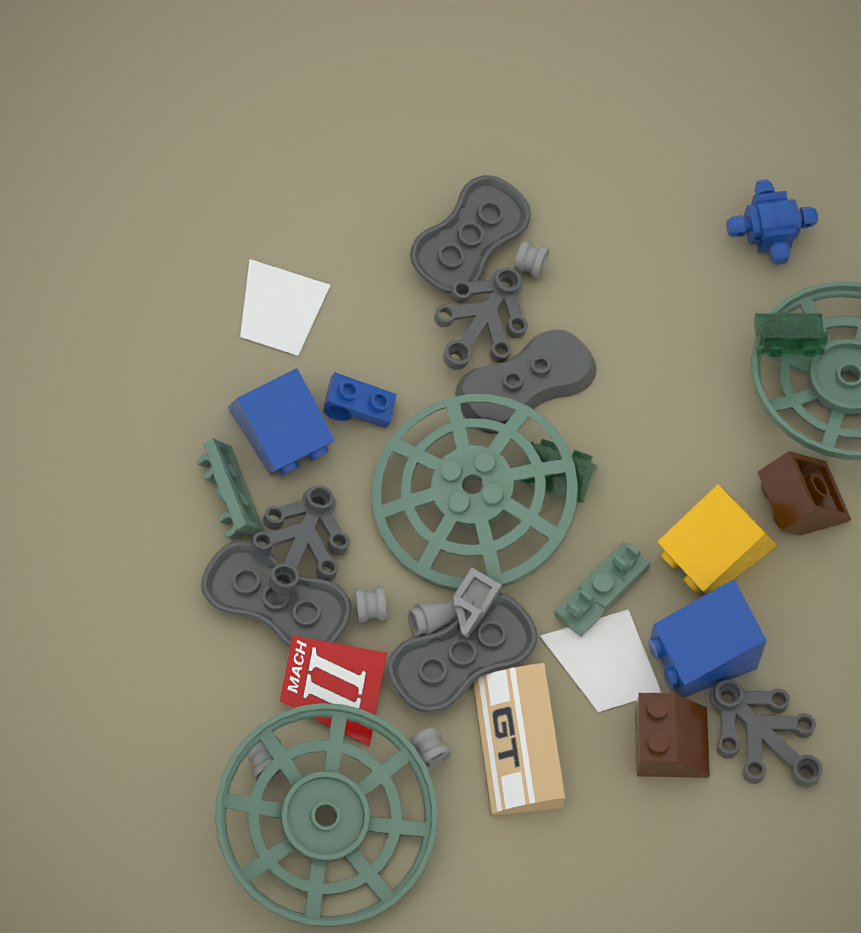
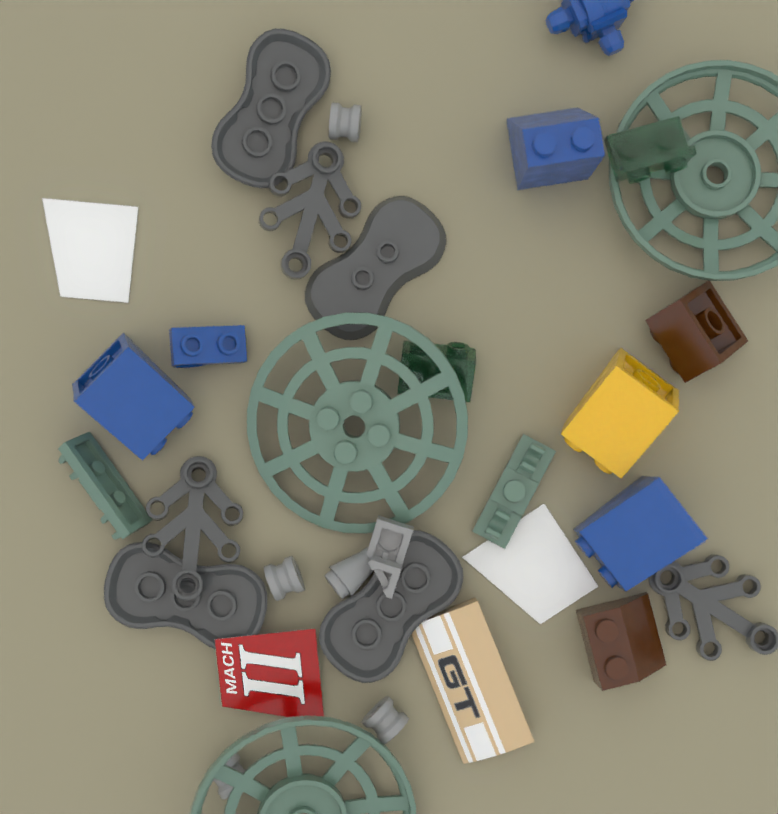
camera: 10 degrees left, 25 degrees up
(708, 319) = (554, 147): none -> blue slope

